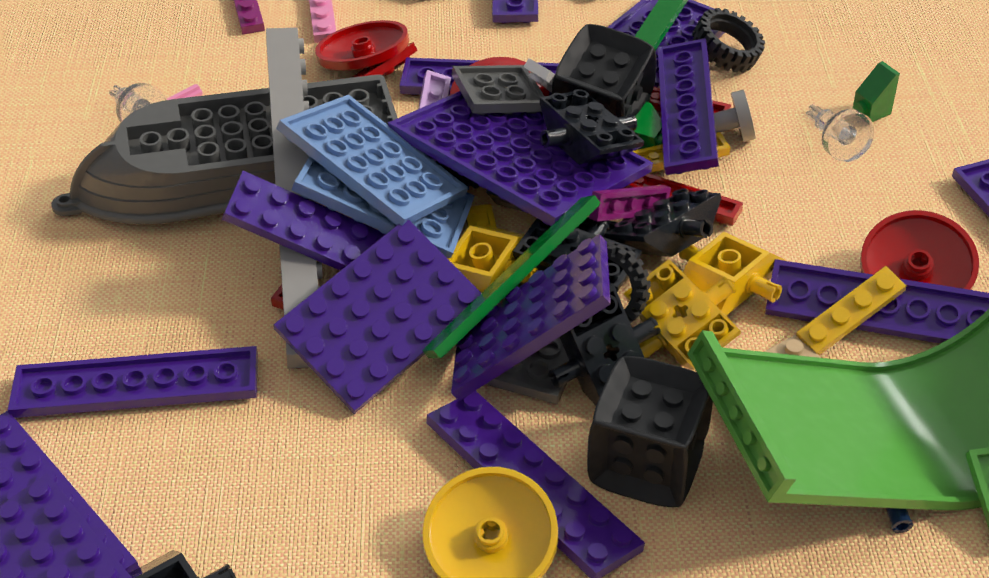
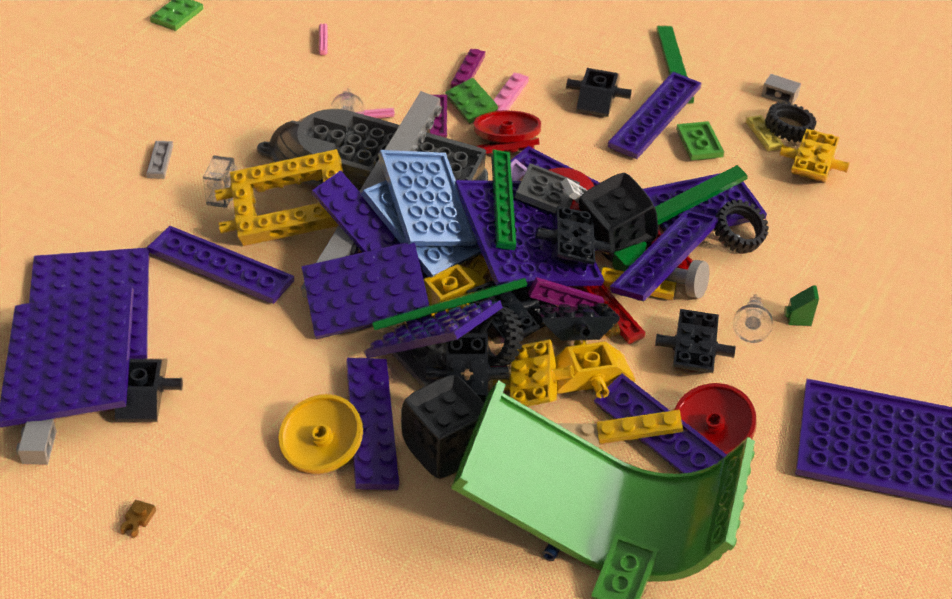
camera: 30 degrees right, 0 degrees up
(24, 42) = (323, 39): none -> bright pink axle
(46, 271) = (218, 177): none -> clear brick
(187, 285) = (285, 223): none -> yellow brick
(252, 62) = (440, 122): none -> magenta plate
(309, 30) = (471, 100): none -> bright green plate
(465, 122) = (503, 200): none -> green tile
(808, 186) = (695, 341): none -> black slope

